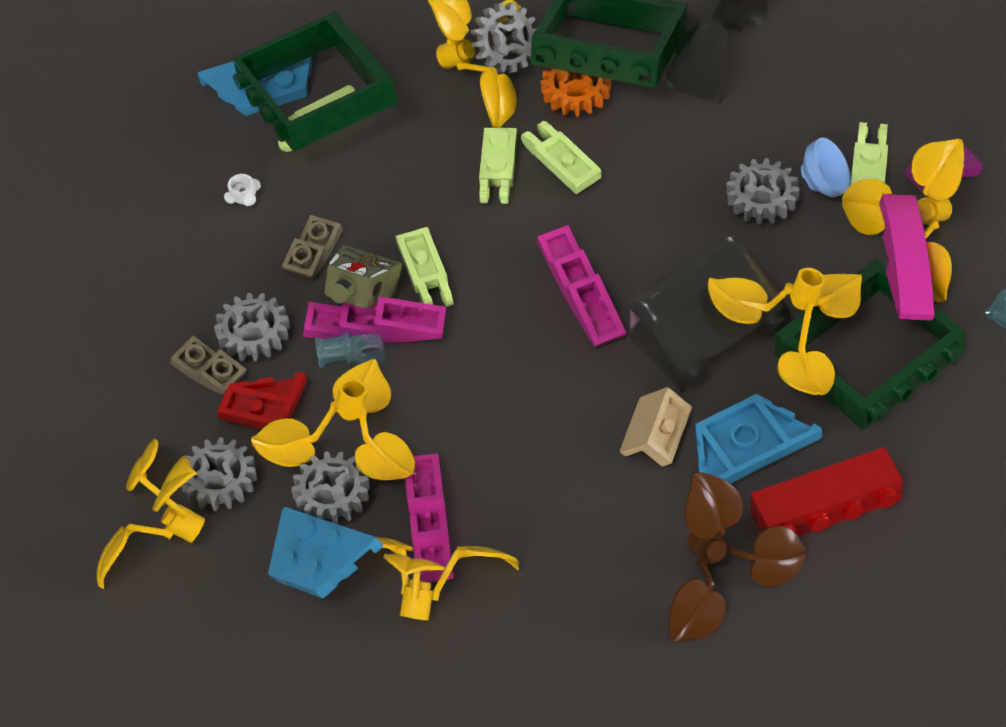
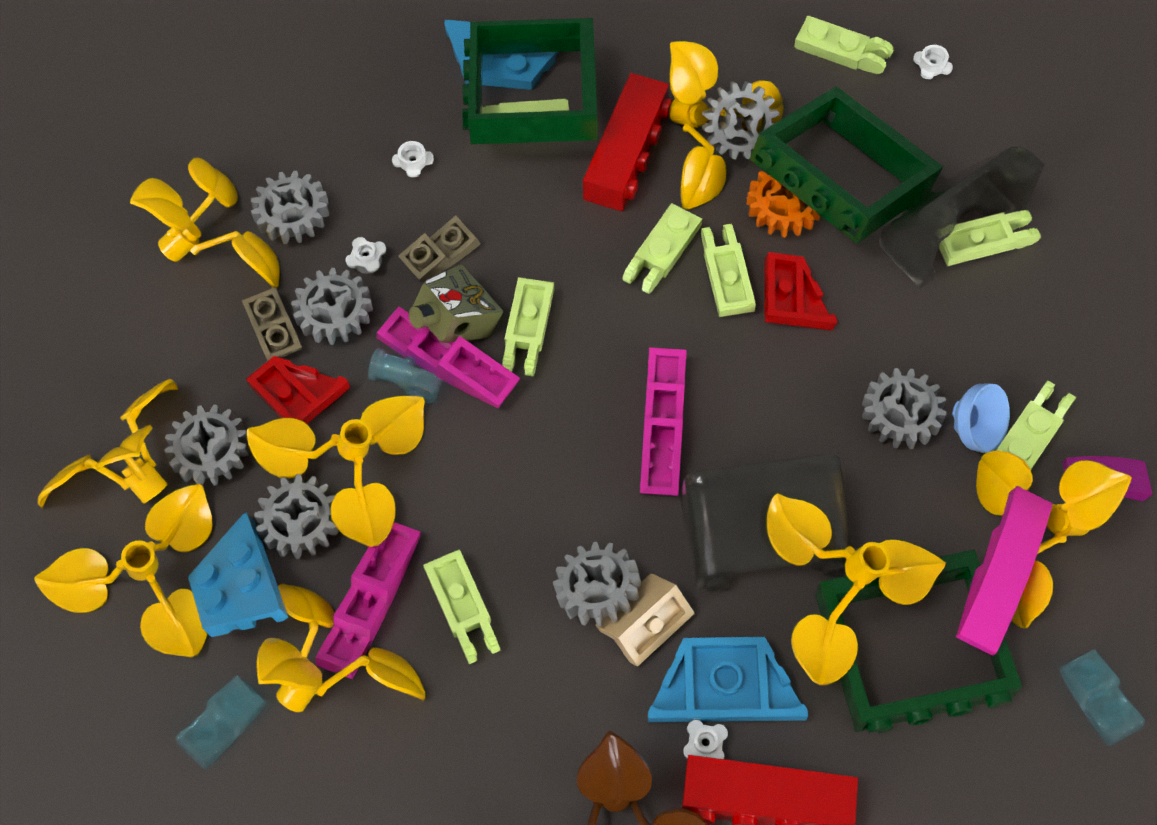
camera: 25 degrees right, 10 degrees up
(87, 330) = (184, 235): none -> yellow plant
(163, 271) = (290, 207): none -> light grey gear
(230, 544) = (173, 625): none -> yellow plant
(258, 284) = (369, 263): none -> white plate
(367, 660) = (221, 723): none -> clear light blue slope
(418, 99) = (626, 142): none -> red brick
(506, 486) = (460, 601): none -> yellowish green hinge
(605, 419) = (597, 589): none -> light grey gear
(624, 150) = (792, 294): none -> red wing
(746, 483) = (698, 732): none -> white plate
(753, 41) = (988, 237): none -> yellowish green hinge

